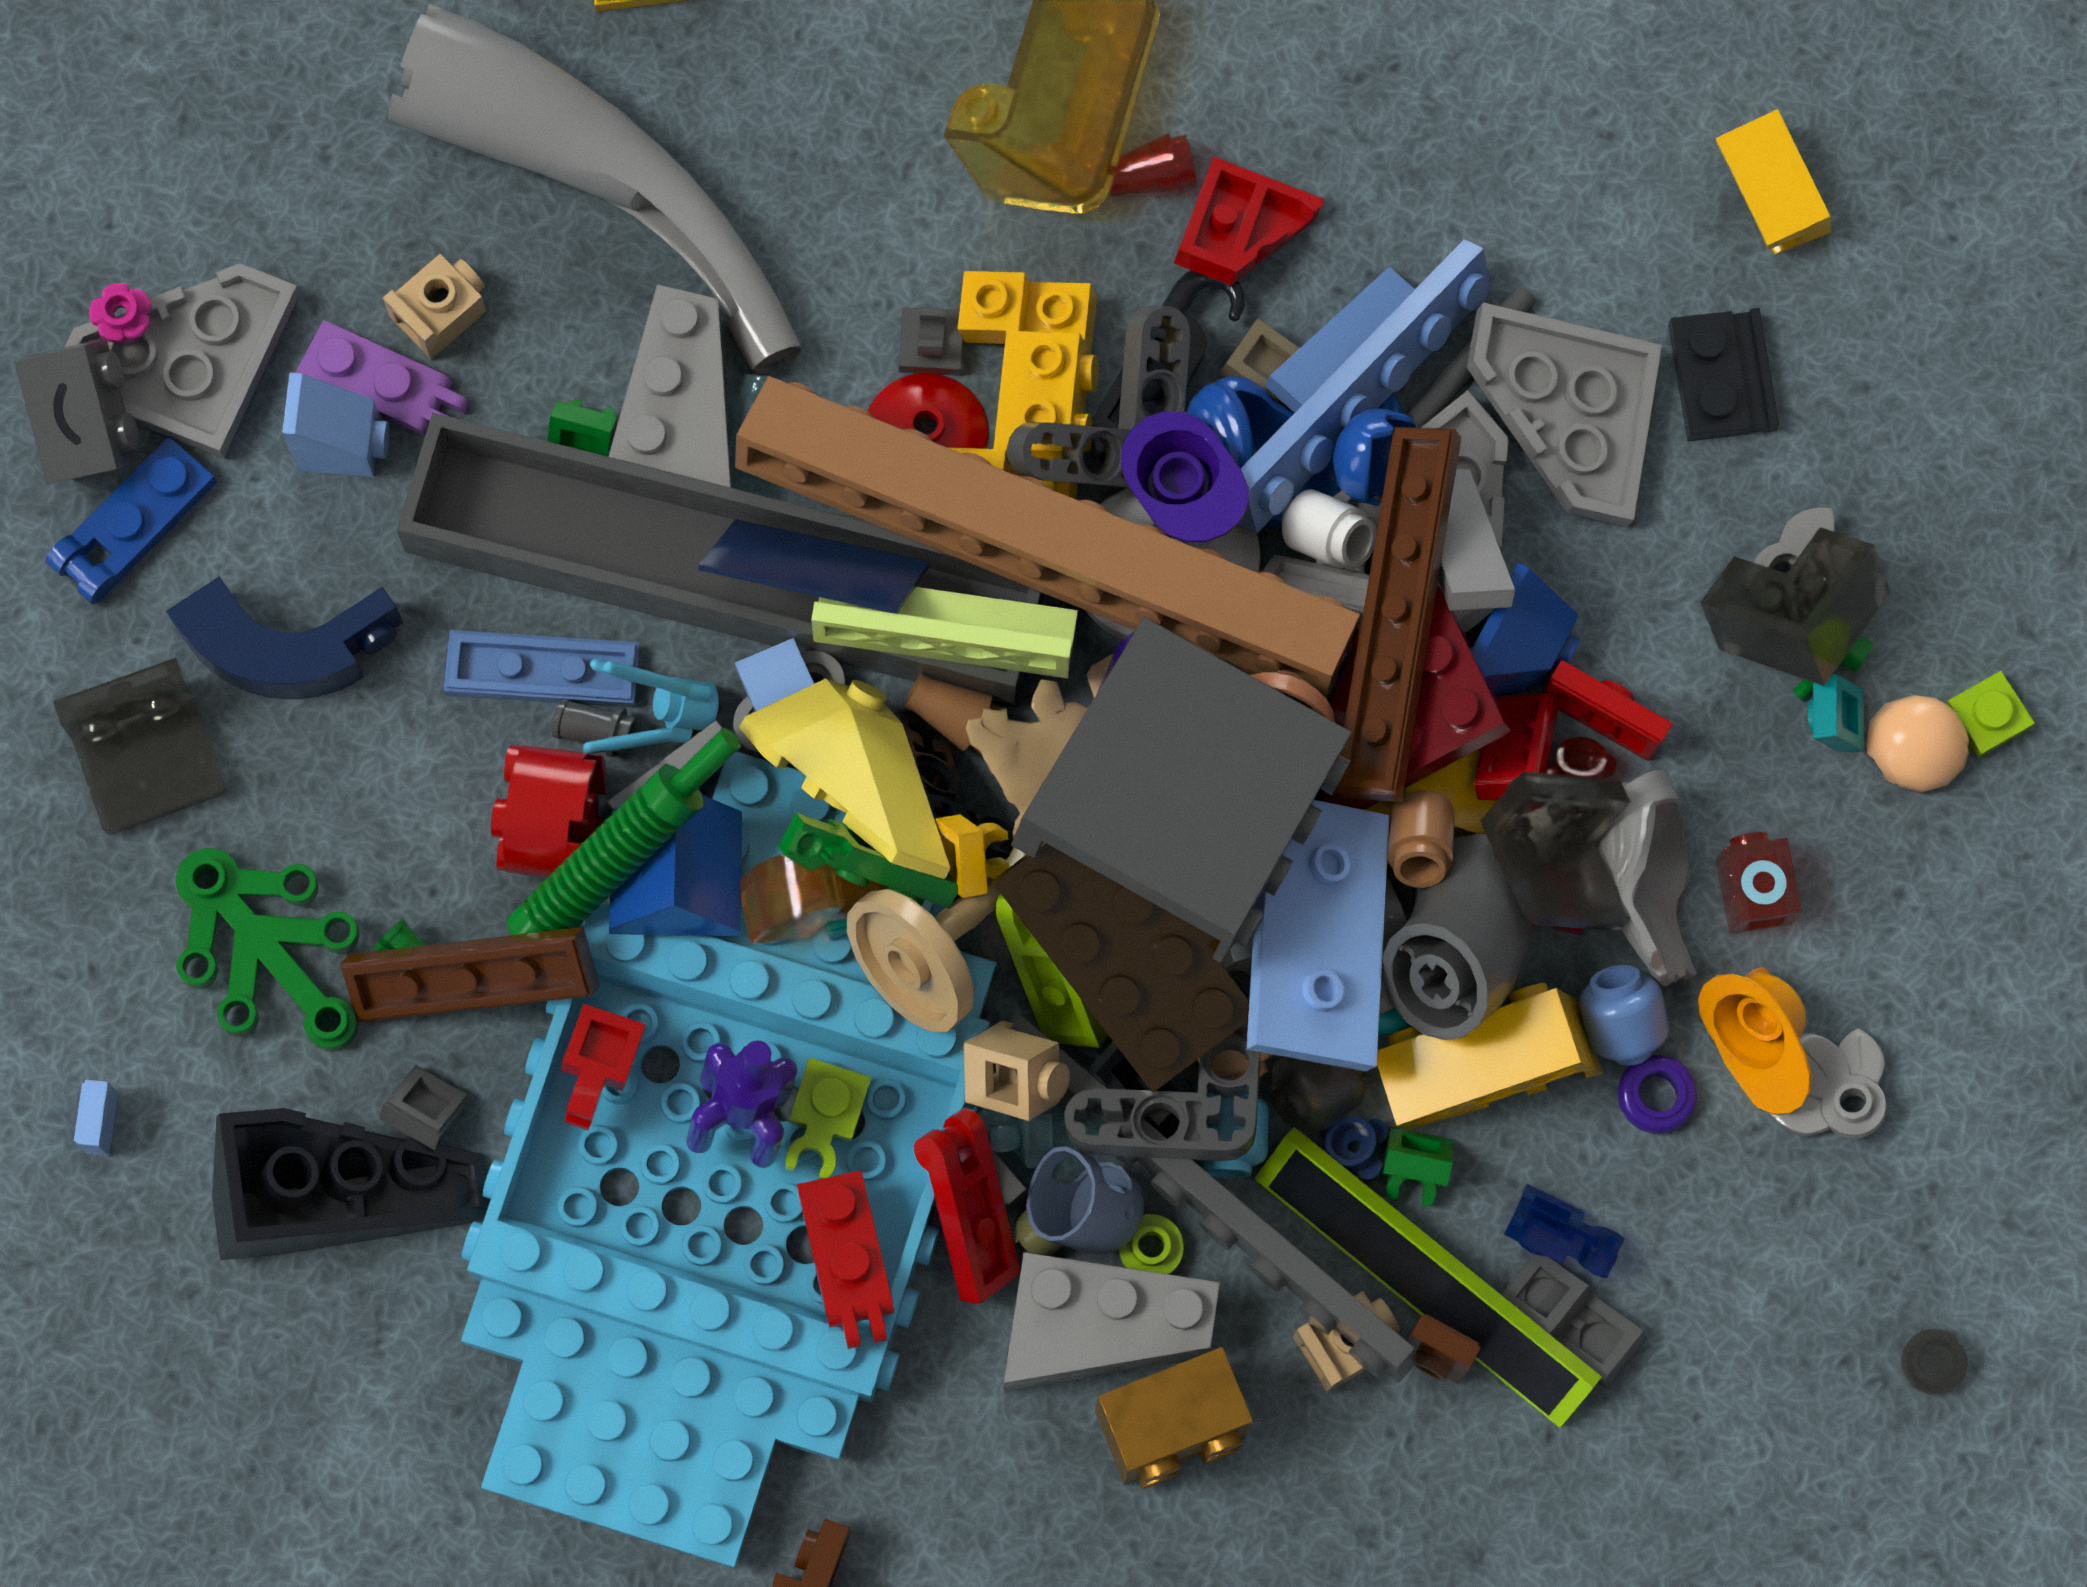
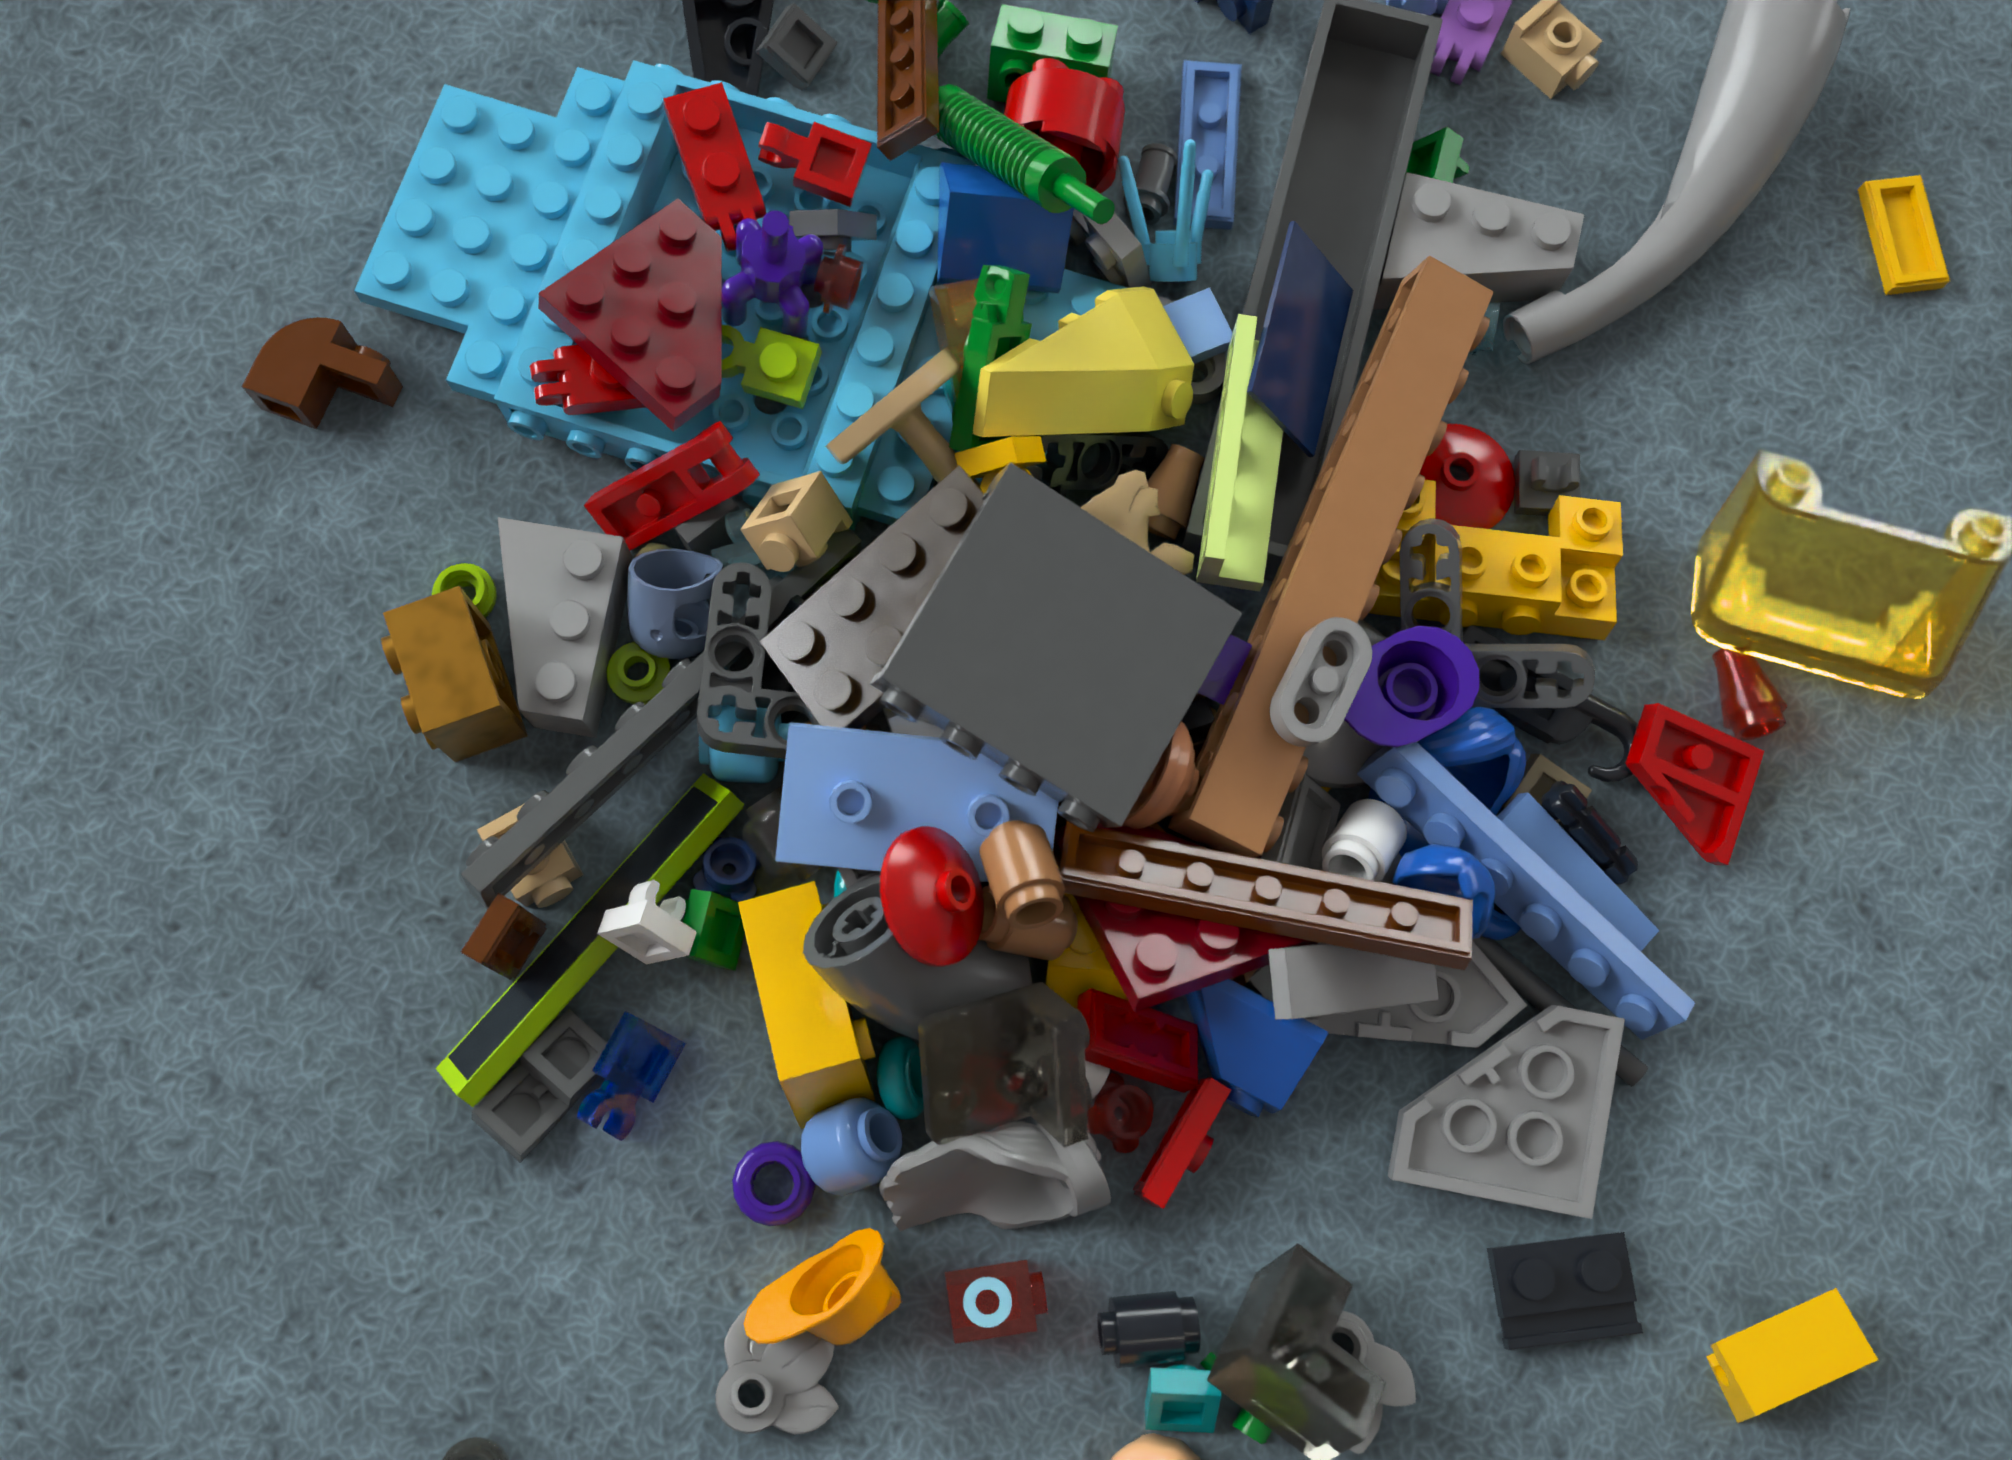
camera: 90 degrees right, 0 degrees up
(451, 827) = (1032, 35): none -> brick
(602, 1169) = (715, 159): none -> red hinge
(680, 1042) = (834, 226): none -> dark grey plate
(740, 1028) = (838, 280): none -> clear red plate
(785, 1221) = (651, 312): none -> dark red plate
(1067, 1413) = (473, 576): none -> lime plate
(1199, 551) = (1319, 686): none -> light grey plate
(1300, 323) = (1589, 831): none -> black axle
(1392, 826) = (1022, 874): none -> medium nougat brick
(1415, 908) = (932, 896): none -> red dish
(1424, 1206) = (649, 930): none -> white tile
(1558, 968) = (900, 1078): none -> teal piece
(1776, 743) = (1149, 1329): none -> black brick

